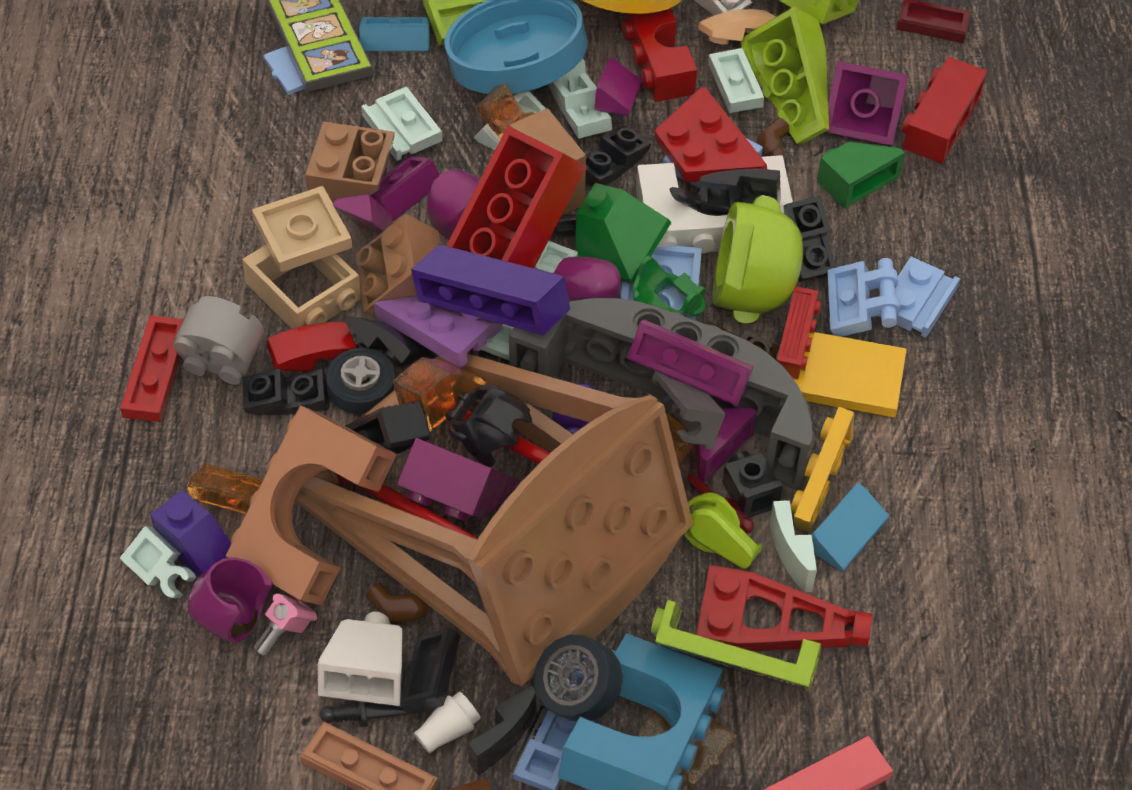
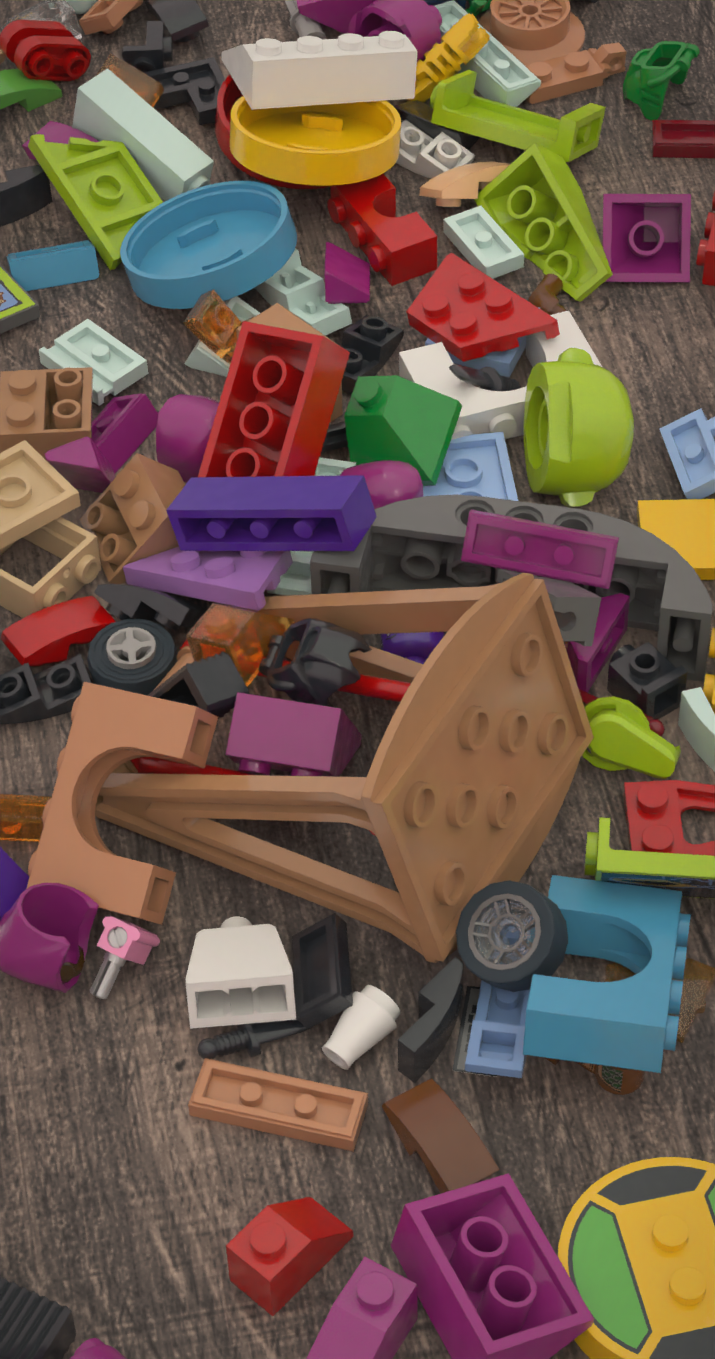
camera: 10 degrees left, 5 degrees down
(397, 608) = (259, 908): reddish brown arm -> none
(653, 279) = (459, 474): green helmet -> none
(724, 188) = (515, 355): black slope -> none
(797, 329) = (649, 492): red piece -> none
(814, 227) = (632, 372): black slope -> none
(858, 170) = (660, 314): green slope -> none

